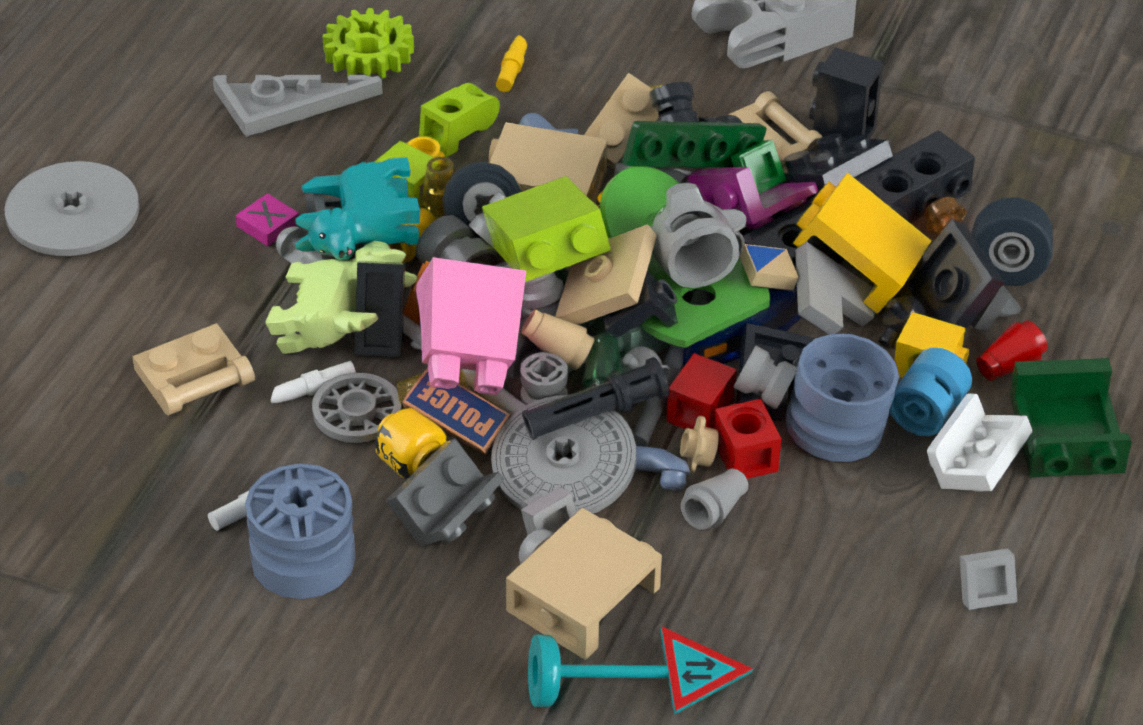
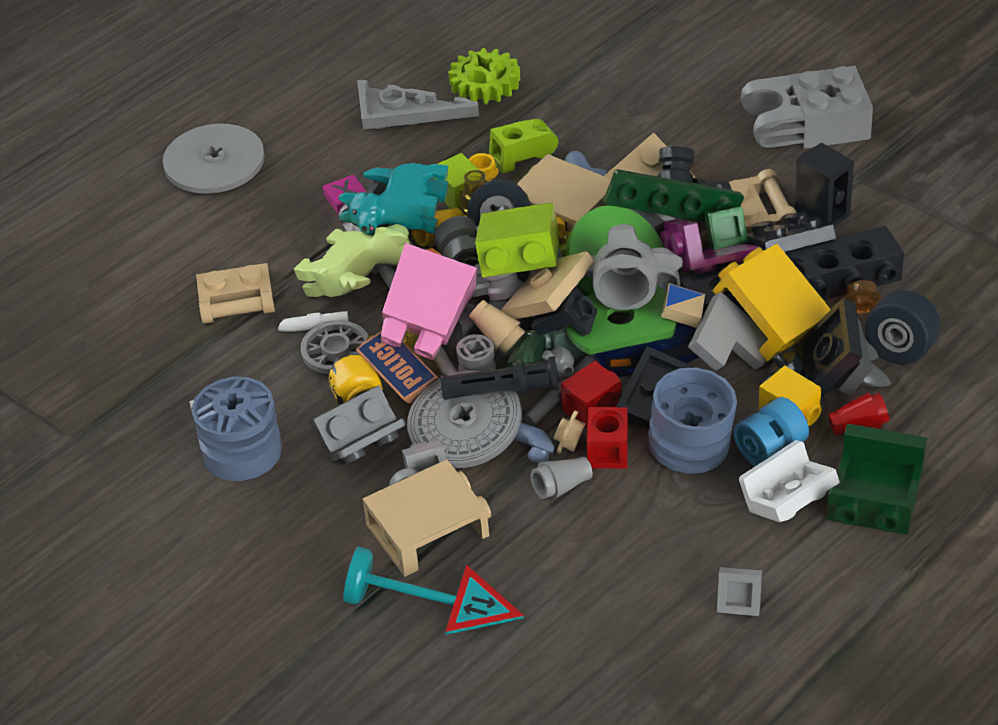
camera: 25 degrees right, 0 degrees up
(381, 292) = (380, 267): black tile -> none
(511, 64) = (587, 111): yellow piece -> none
(763, 376) = (635, 389): light grey wheel -> none

